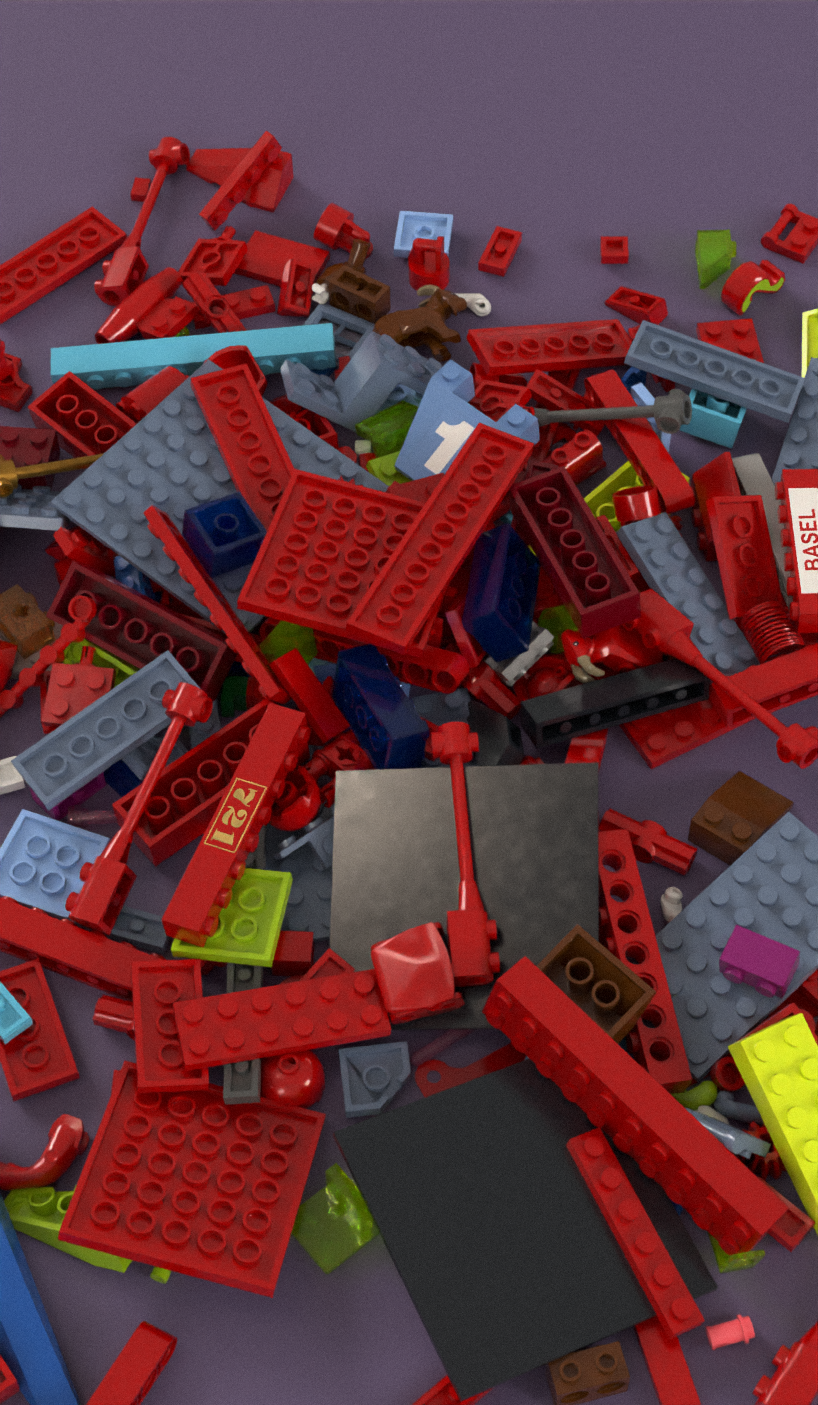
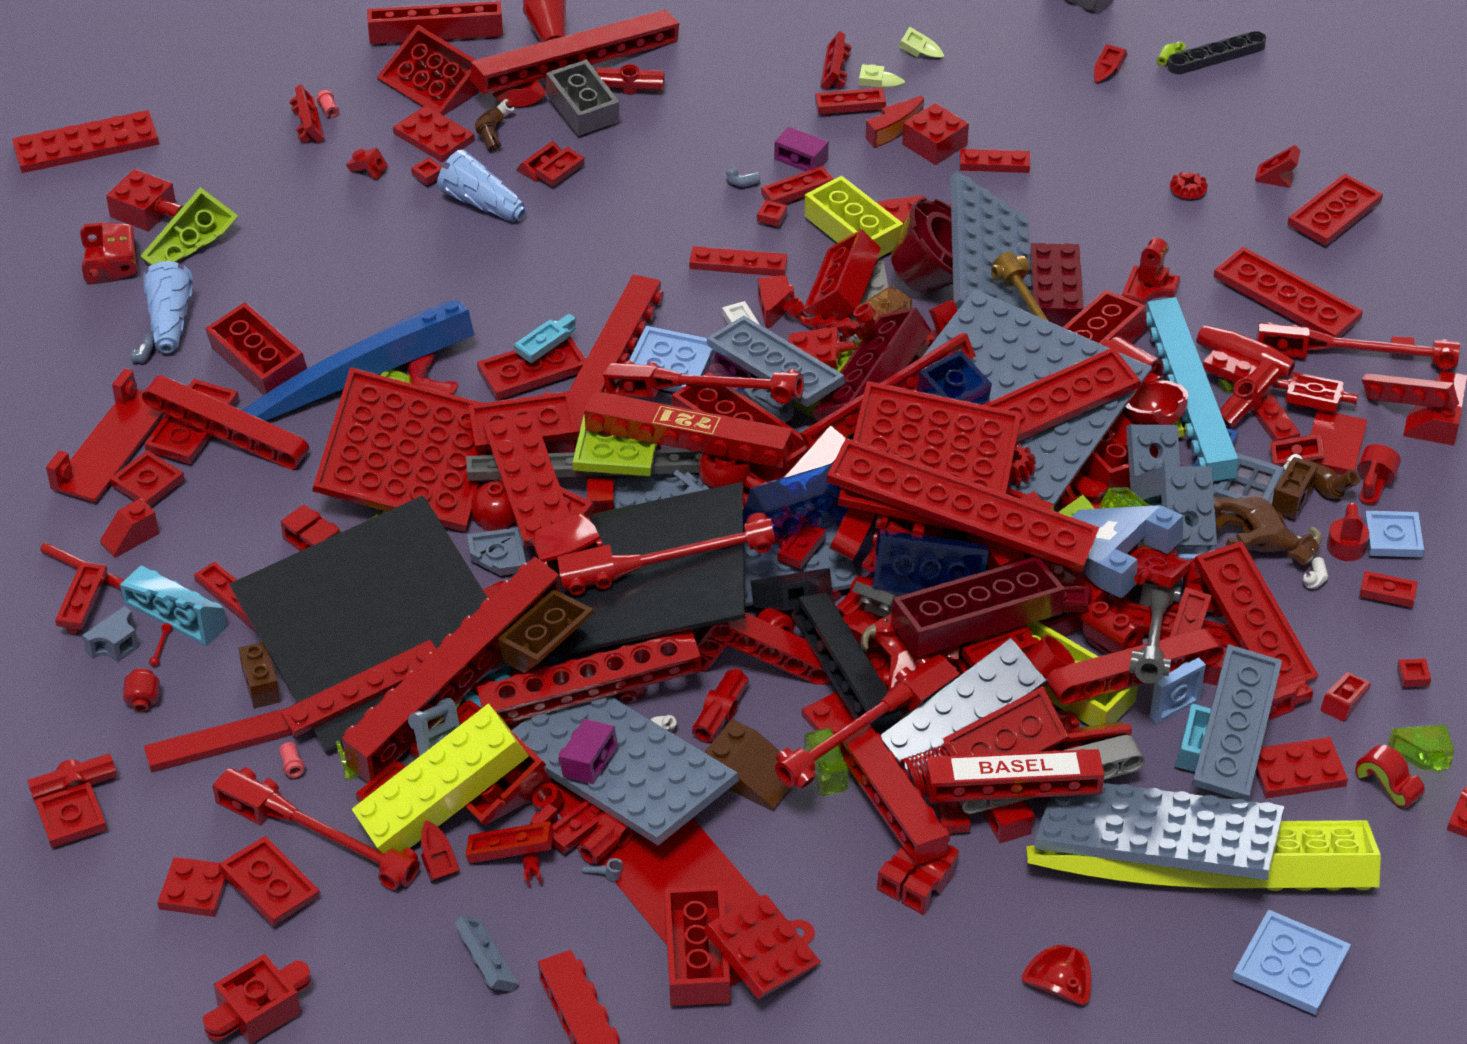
camera: 85 degrees right, 10 degrees down
(322, 1314) = (306, 528): none -> red piece
(736, 743) = (829, 768): none -> clear neon green brick

